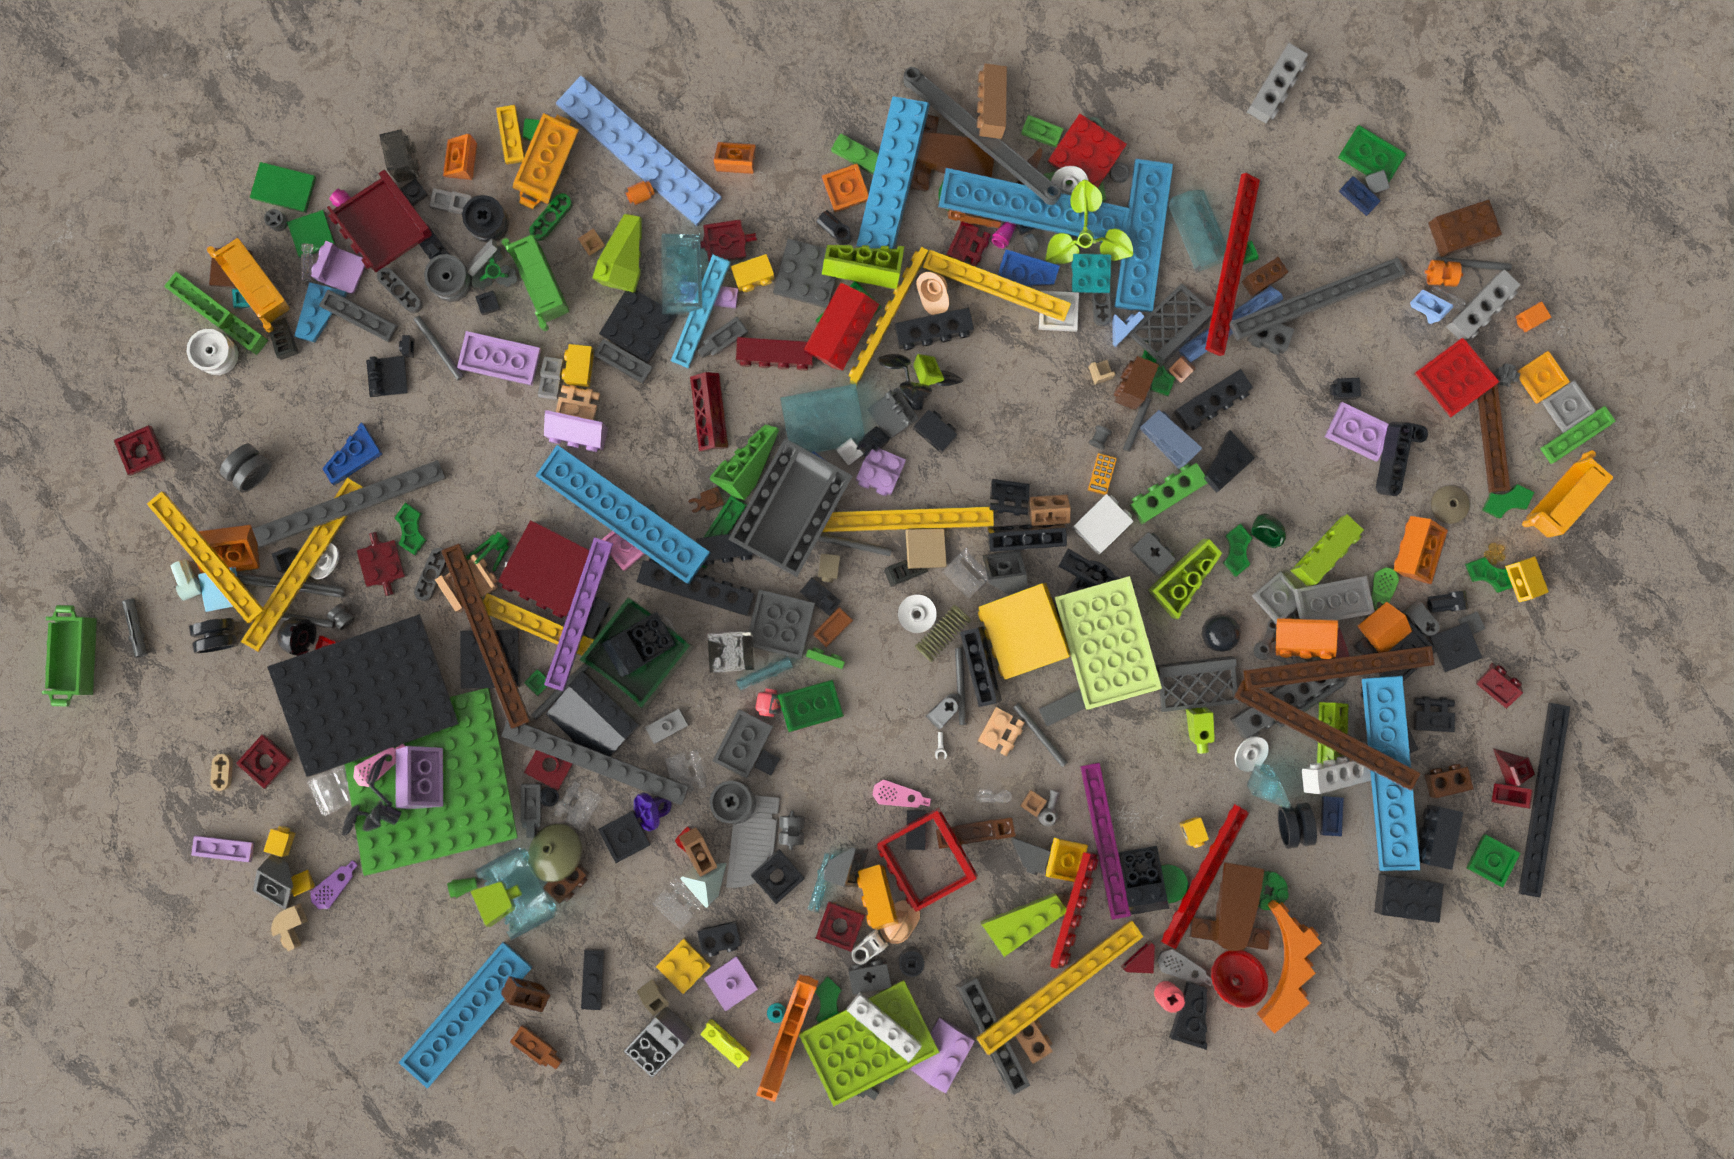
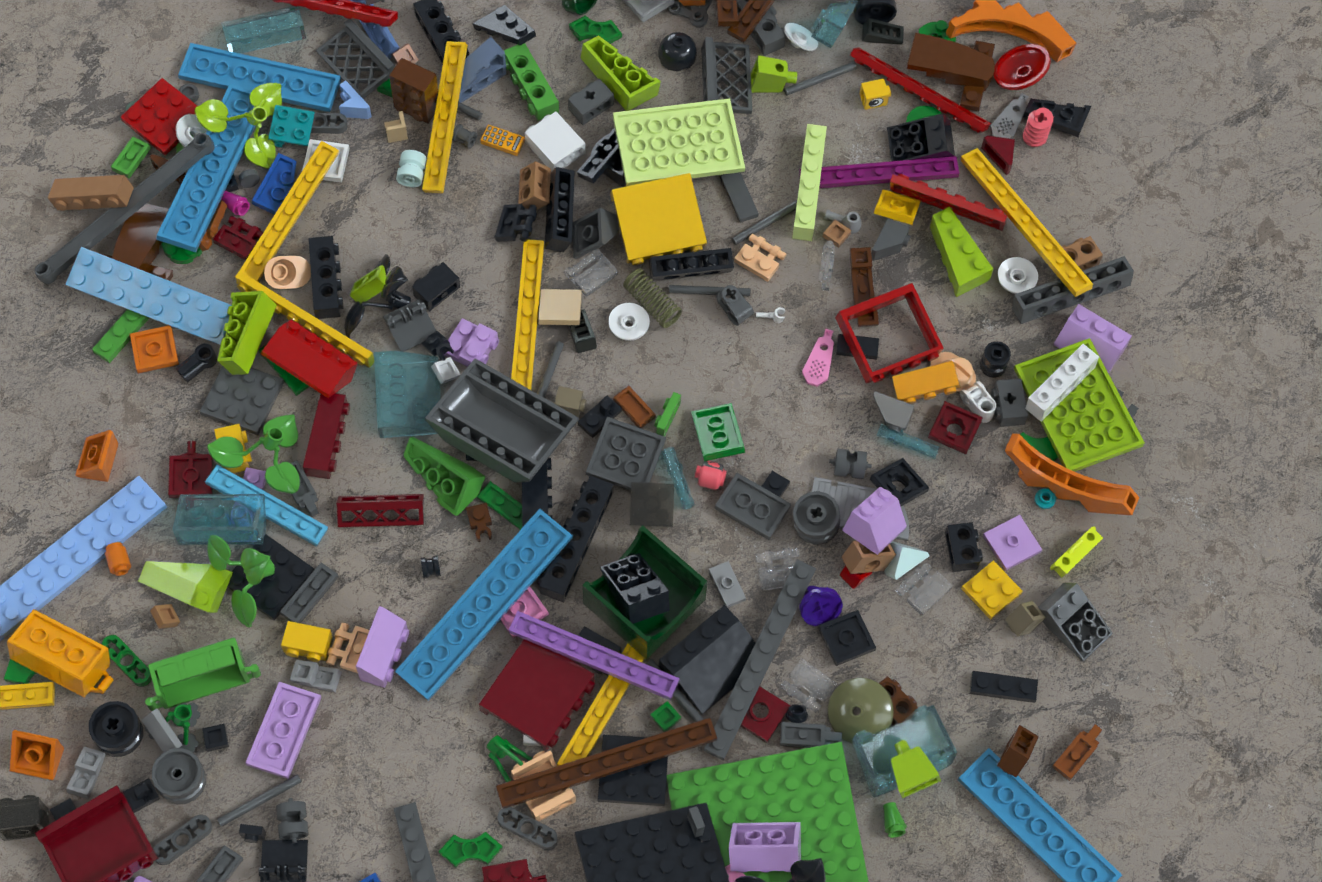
camera: 85 degrees left, 20 degrees down
(419, 377) = (292, 820): none -> dark grey wheel
(432, 716) = (696, 821): none -> dark grey tile
(613, 309) = (256, 568): none -> bright green plant
(657, 462) = (430, 566): none -> black wheel
(723, 318) = (277, 432): none -> bright green plant
(728, 857) = (876, 521): none -> lavender slope
(1010, 989) = (1018, 268): none -> white dish
(1057, 392) = (411, 168): none -> light aqua wheel
(1086, 773) = (809, 182): none -> yellowish green arch
(1114, 416) = (444, 117): none -> yellow plate
(1208, 776) = (820, 78): none -> dark grey bar
(1262, 827) = (875, 37): none -> pearl dark grey slope

